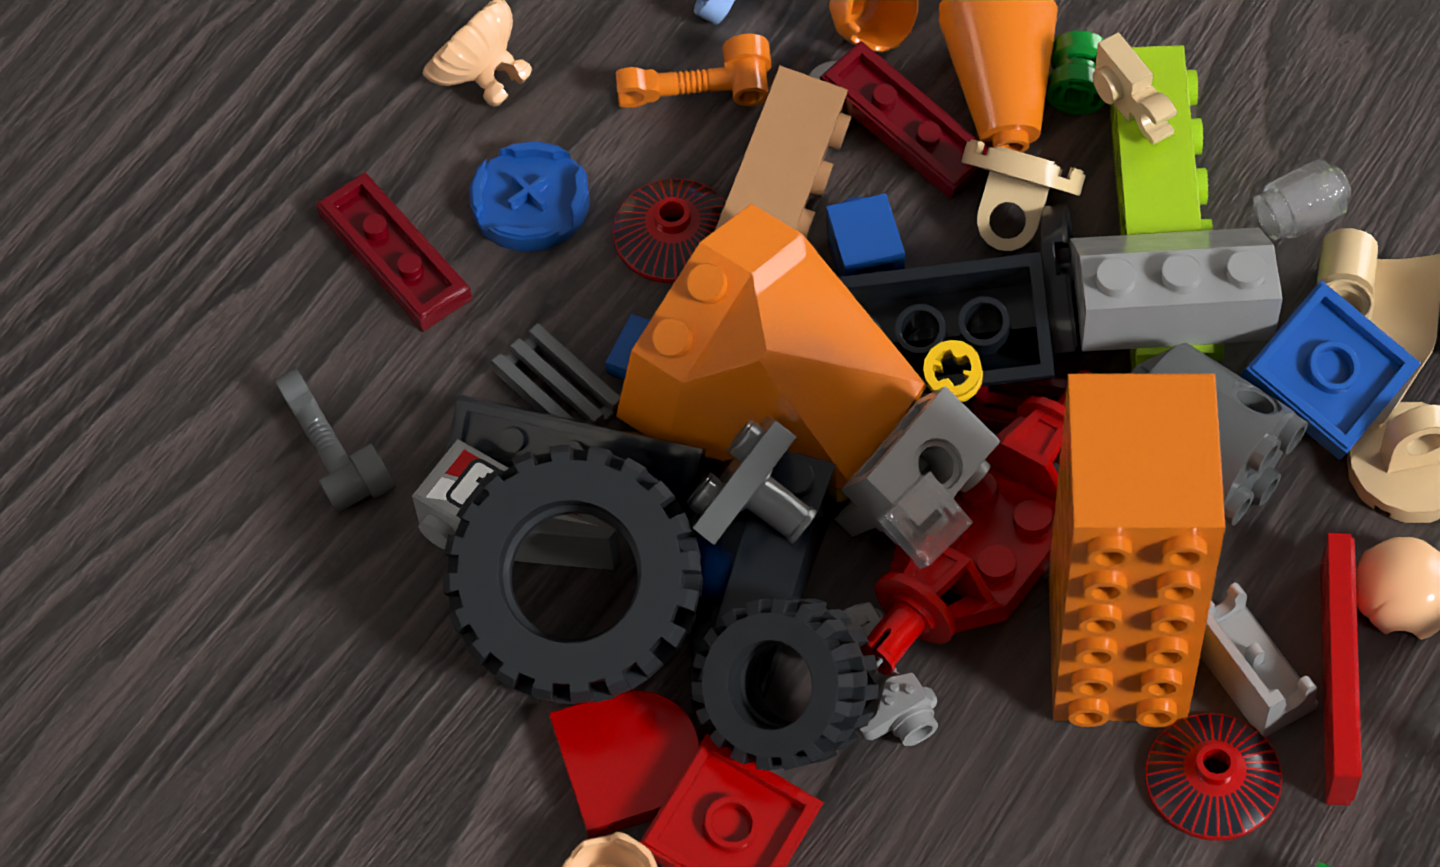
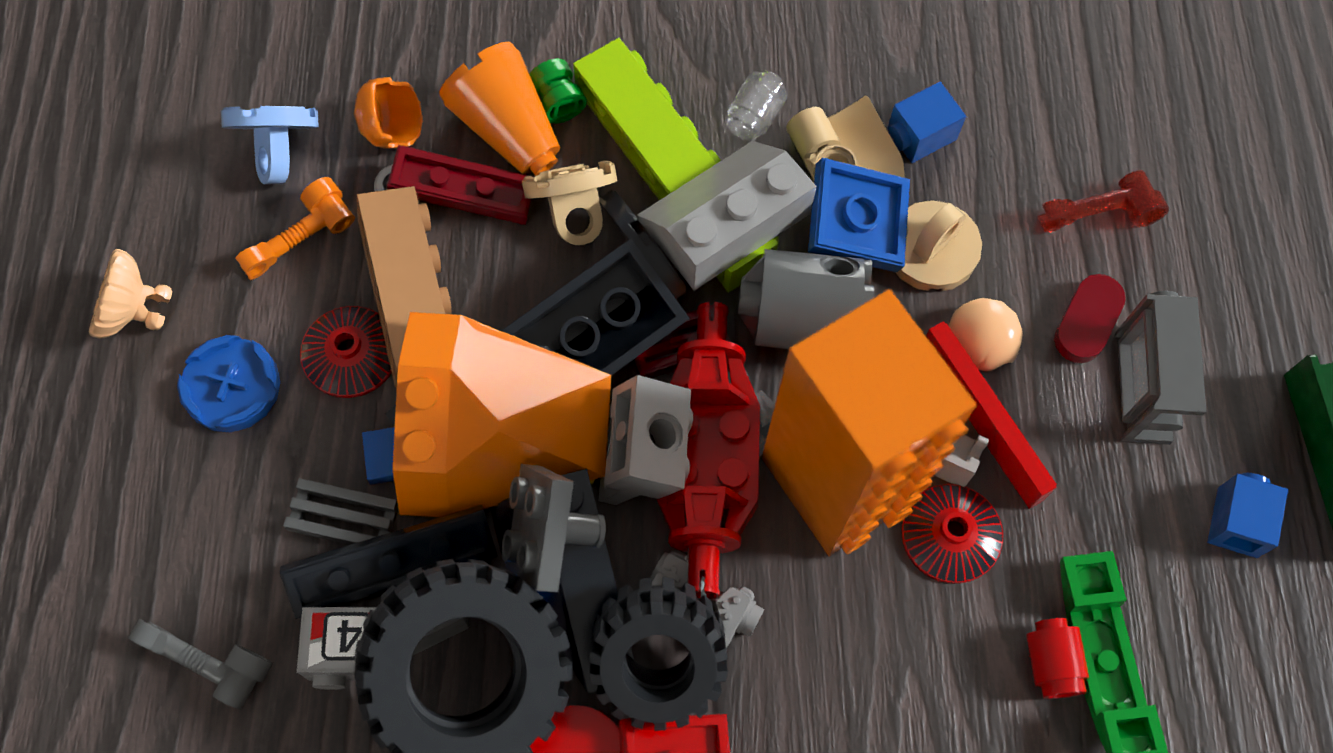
camera: 40 degrees left, 10 degrees up
(394, 251) = (153, 481): dark red tile -> none
(864, 236) = (494, 290): blue brick -> none
(925, 520) = (682, 479): clear tile -> none
(962, 354) = (620, 340): yellow bush -> none
(1127, 83) = (607, 84): tan plate -> none

